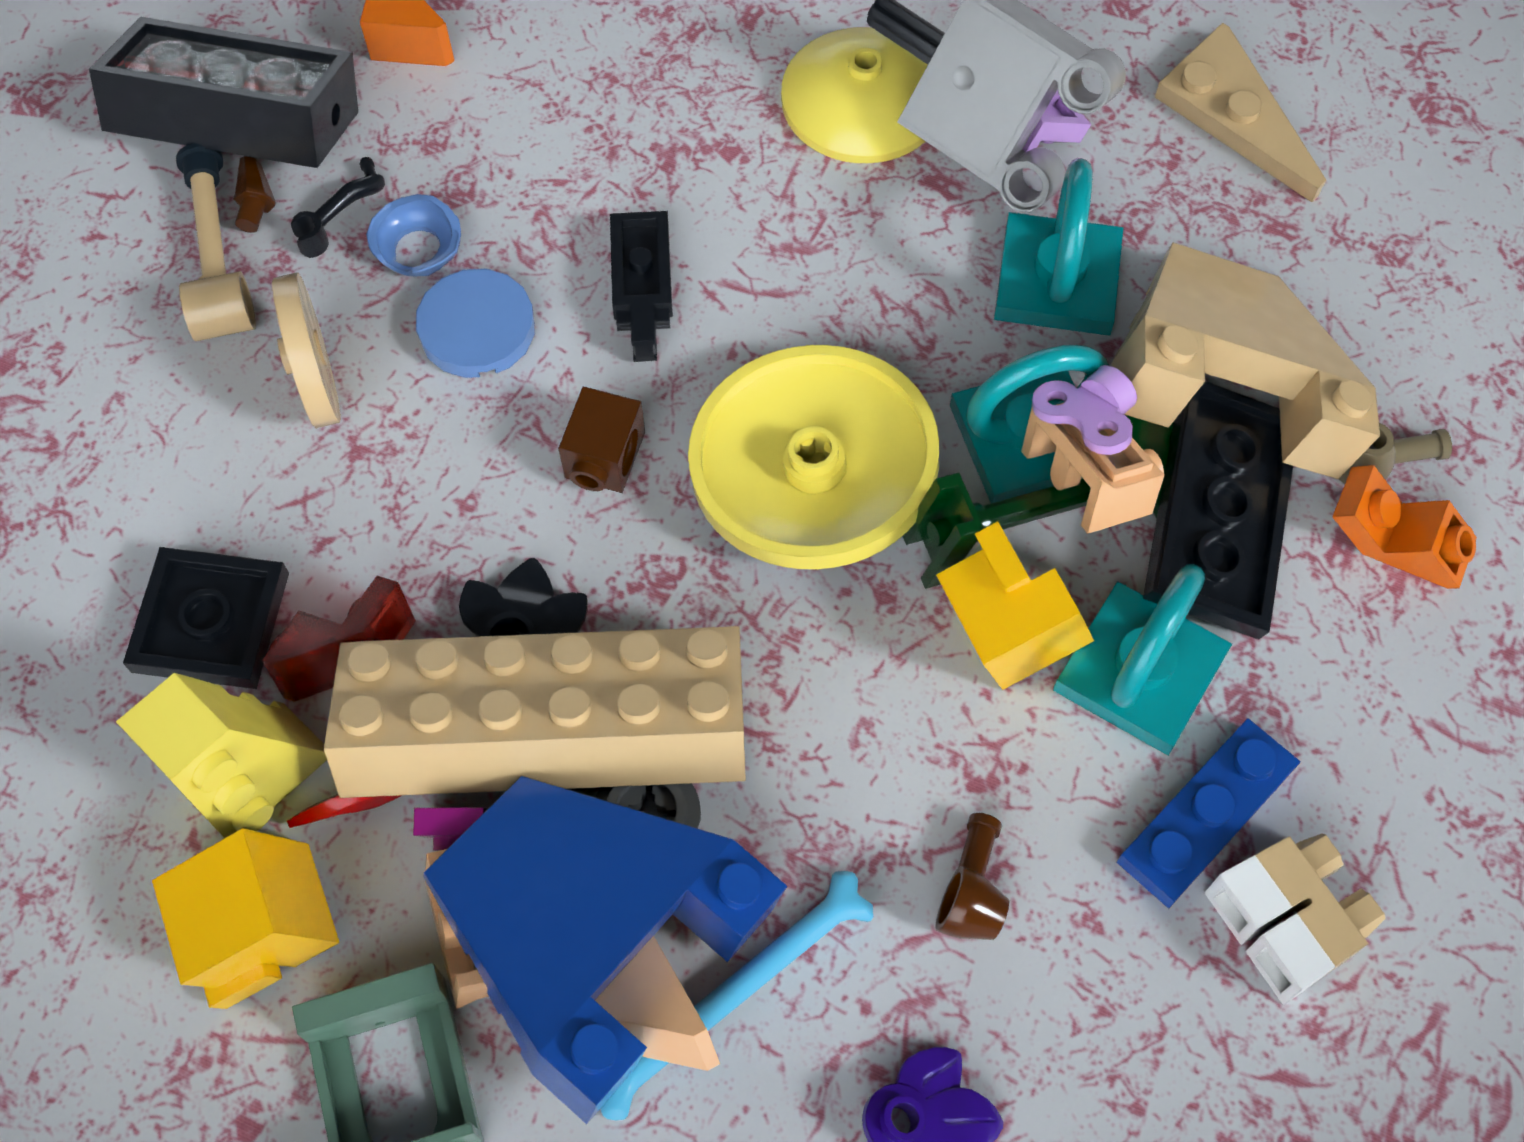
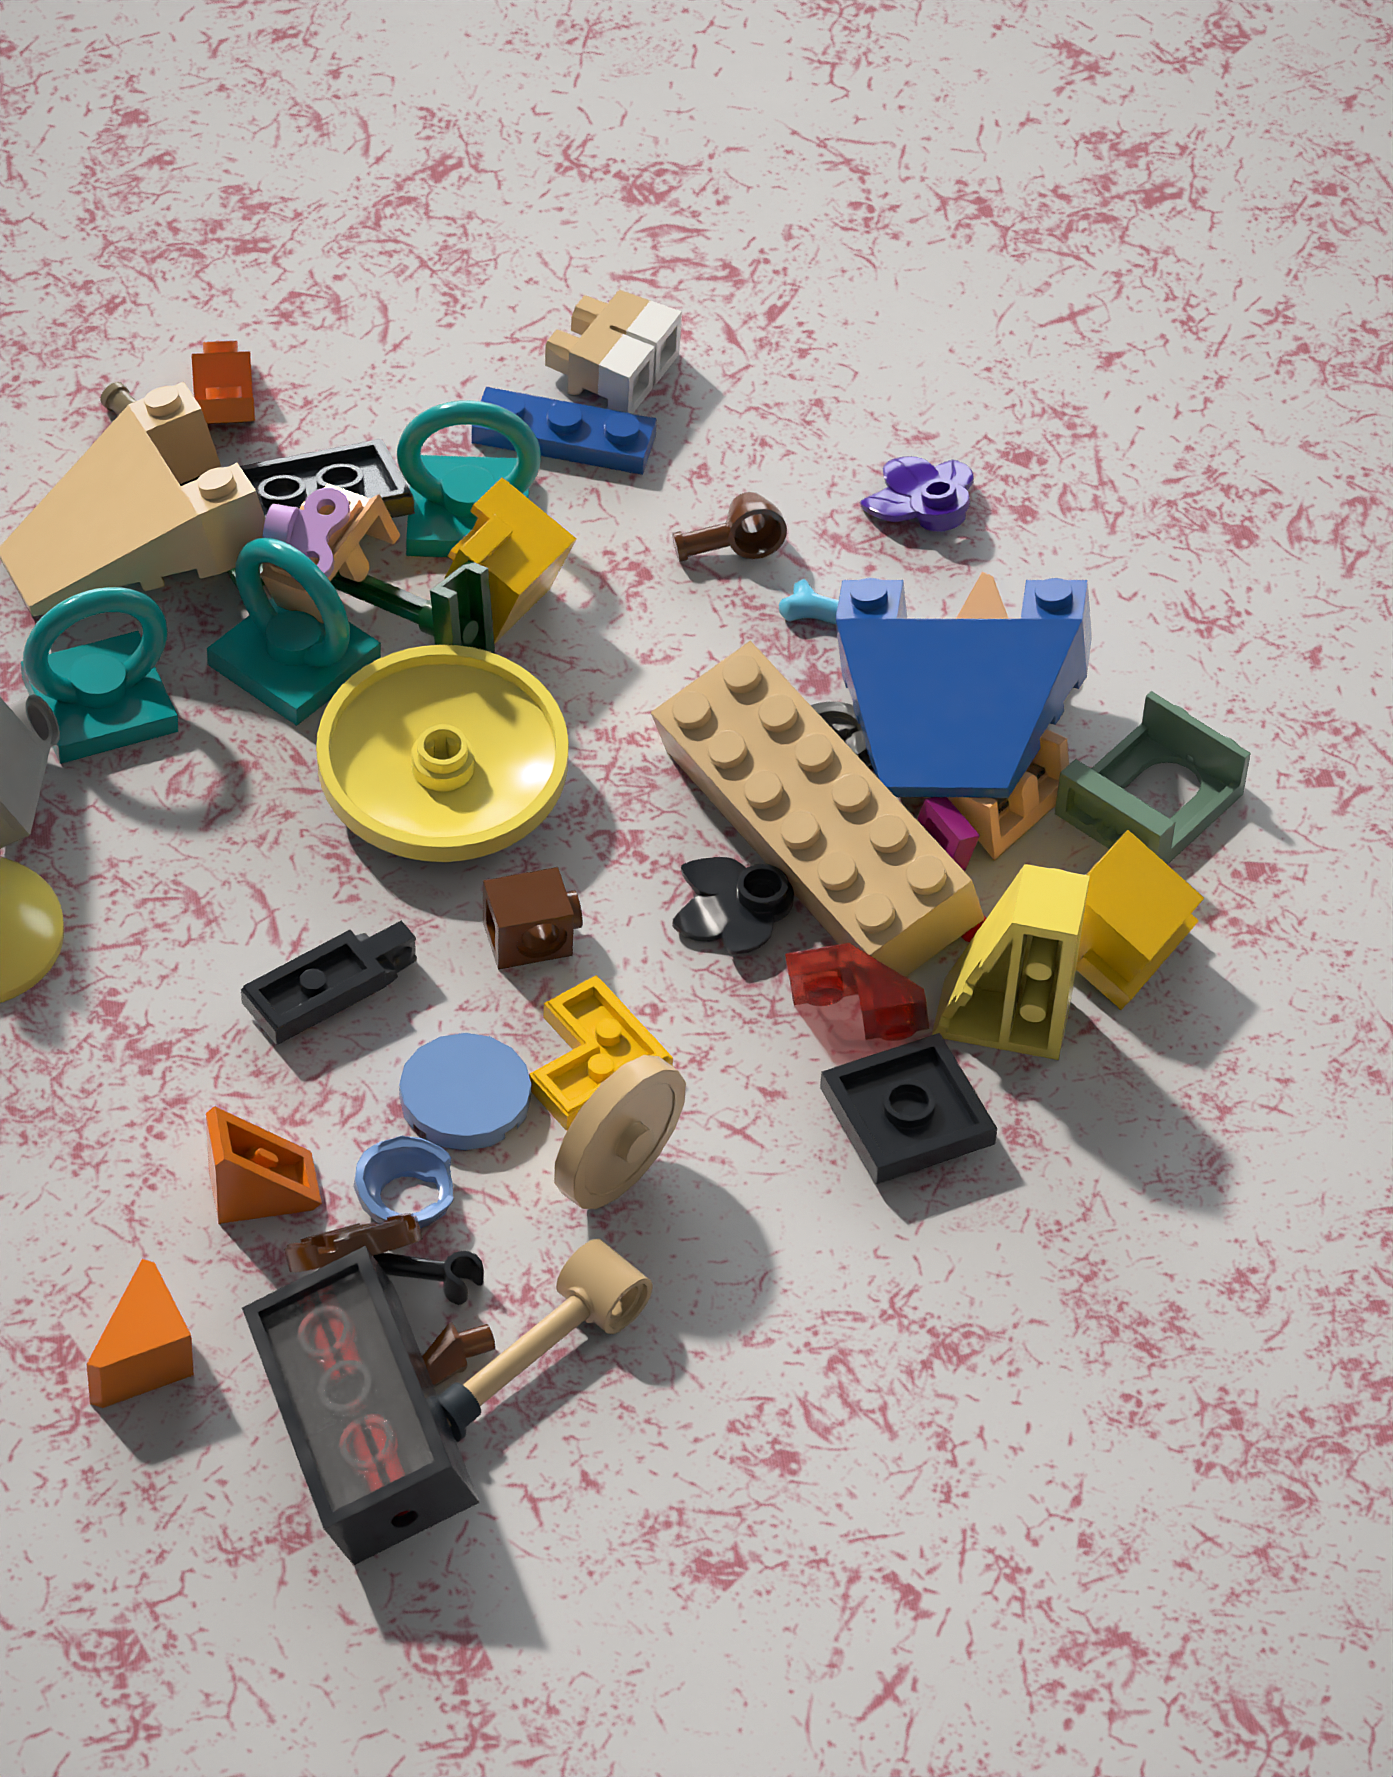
camera: 125 degrees left, 15 degrees down
(362, 152) = (332, 1245): none -> reddish brown tile
(436, 443) = (601, 1041): none -> yellow tile
(491, 140) = (256, 1171): none -> orange slope

